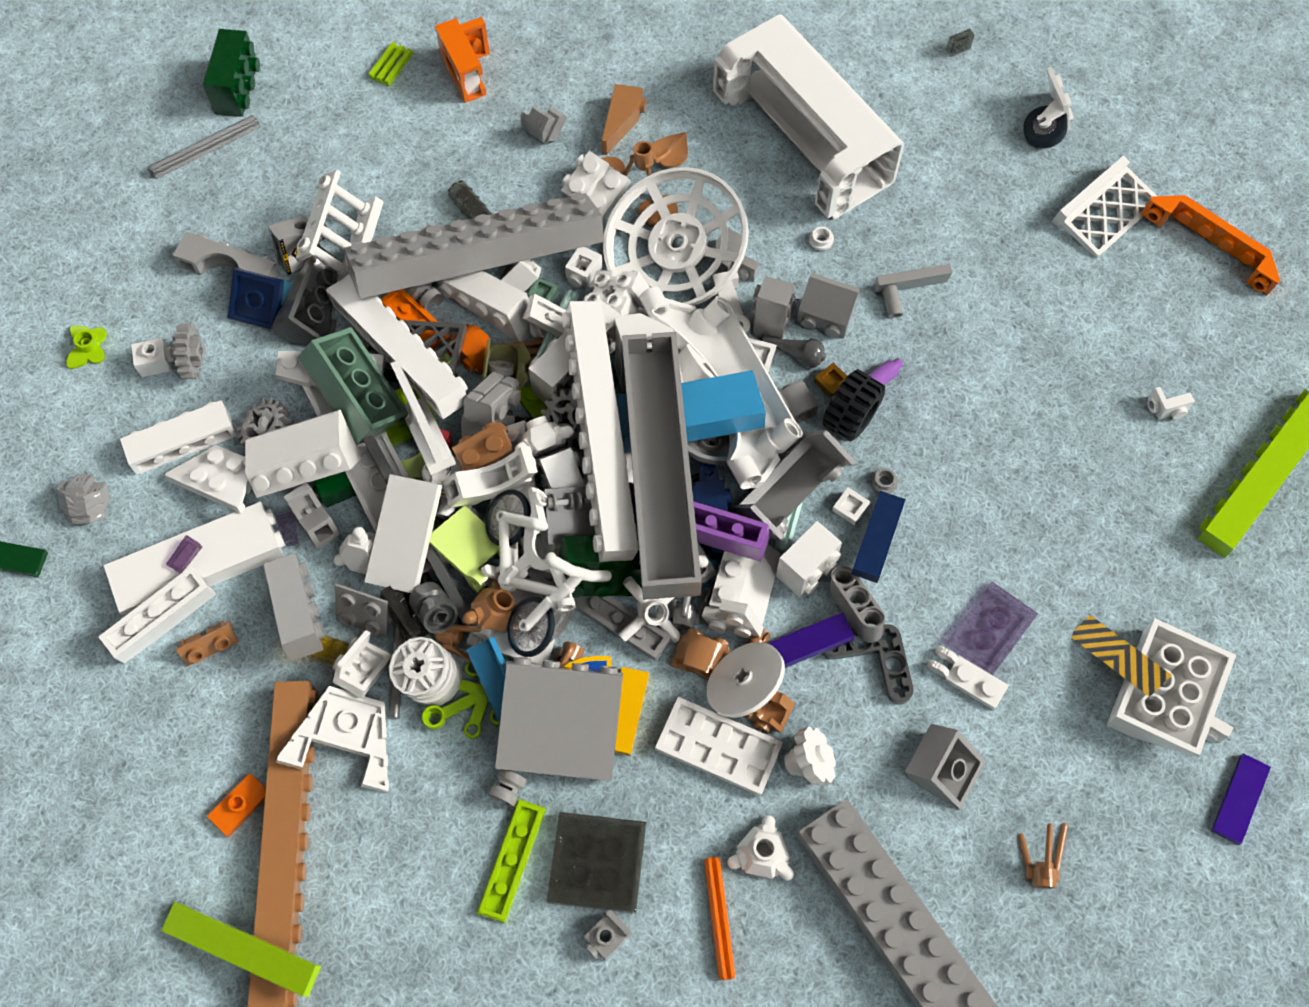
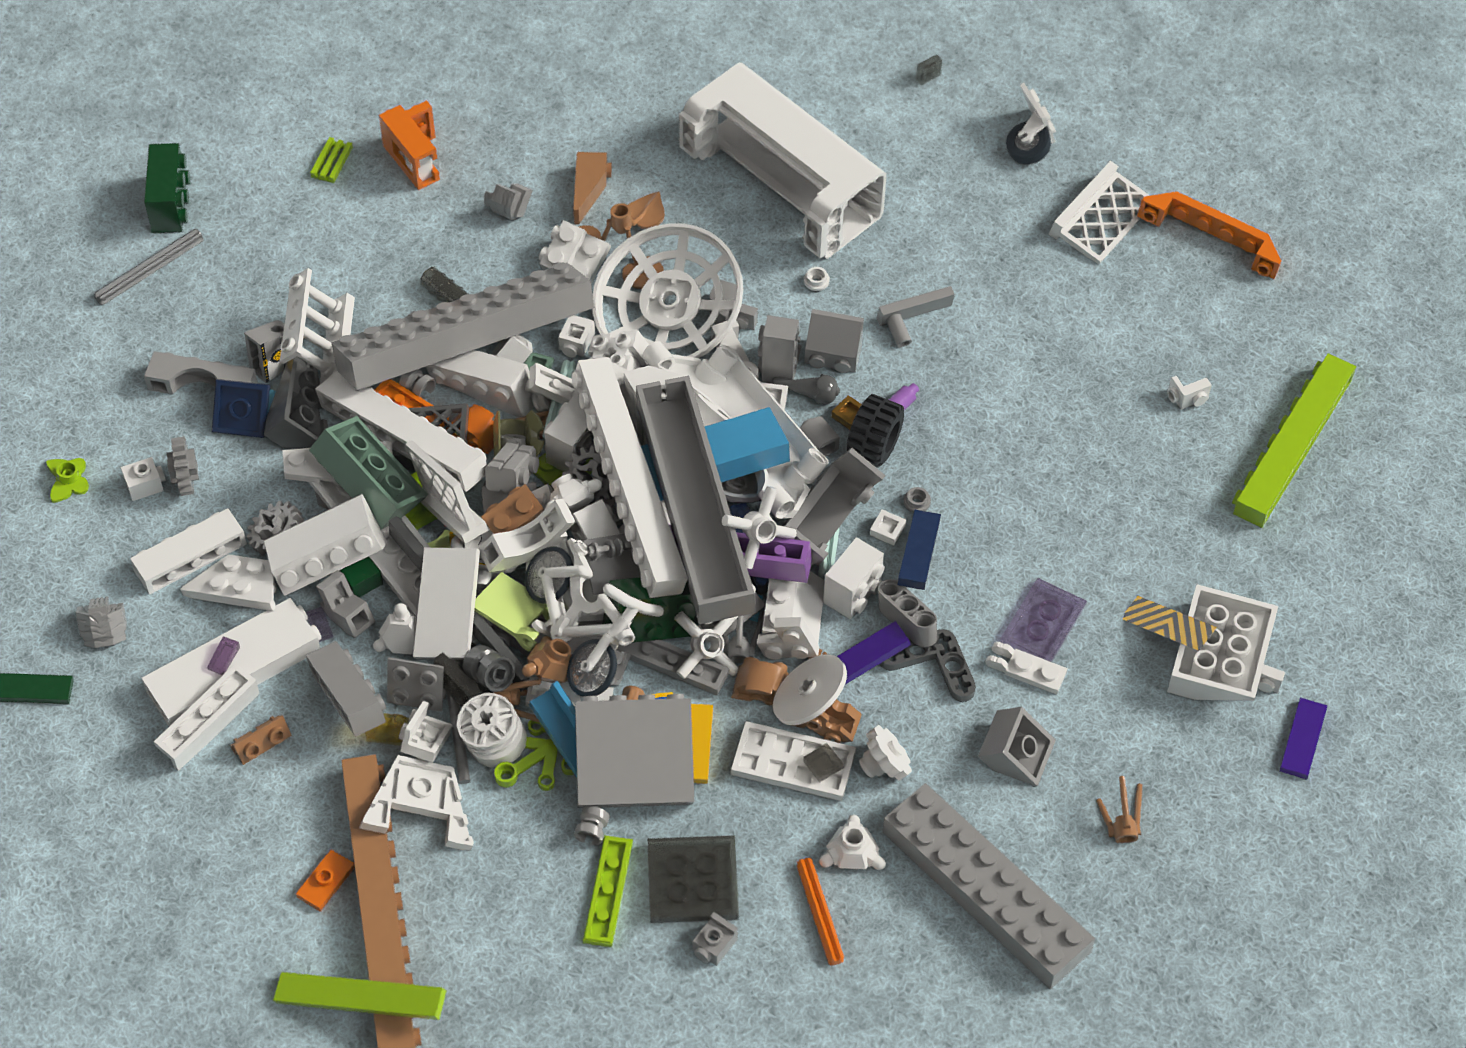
camera: 10 degrees left, 10 degrees down
(719, 505) = (759, 526): none -> white bar
(747, 756) = (823, 762): none -> clear smoke tile

